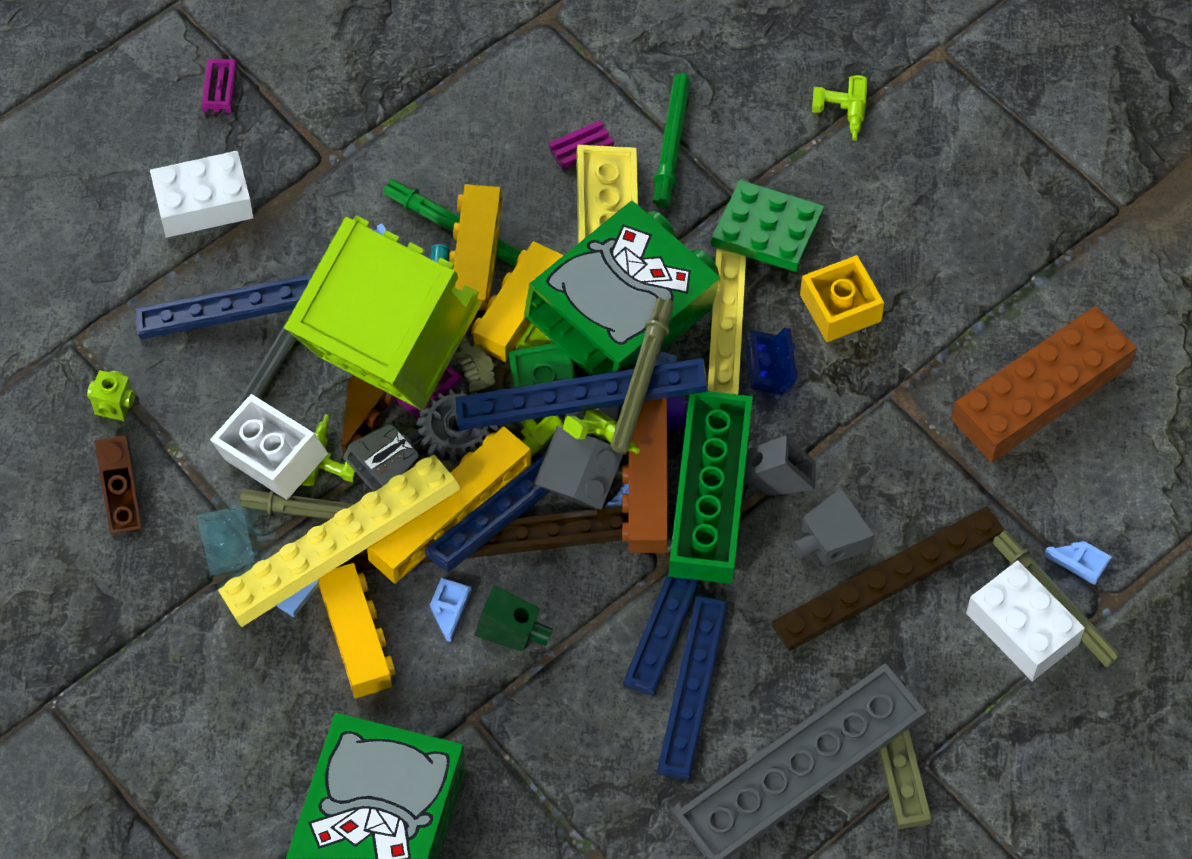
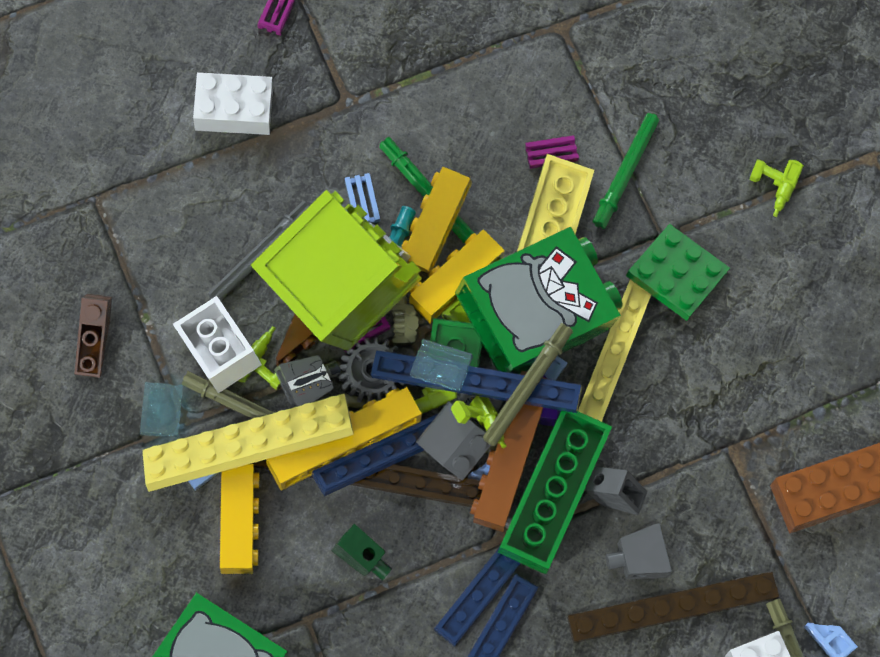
camera: 10 degrees right, 10 degrees up
(111, 394) = (111, 264): lime brick -> none
(220, 307) = (222, 208): dark blue tile -> none
(449, 605) = (318, 519): light blue tile -> none
(536, 387) = (441, 365): none -> clear light blue plate
(770, 360) = (641, 391): clear blue bracket -> none
(841, 298) = (715, 356): yellow brick -> none

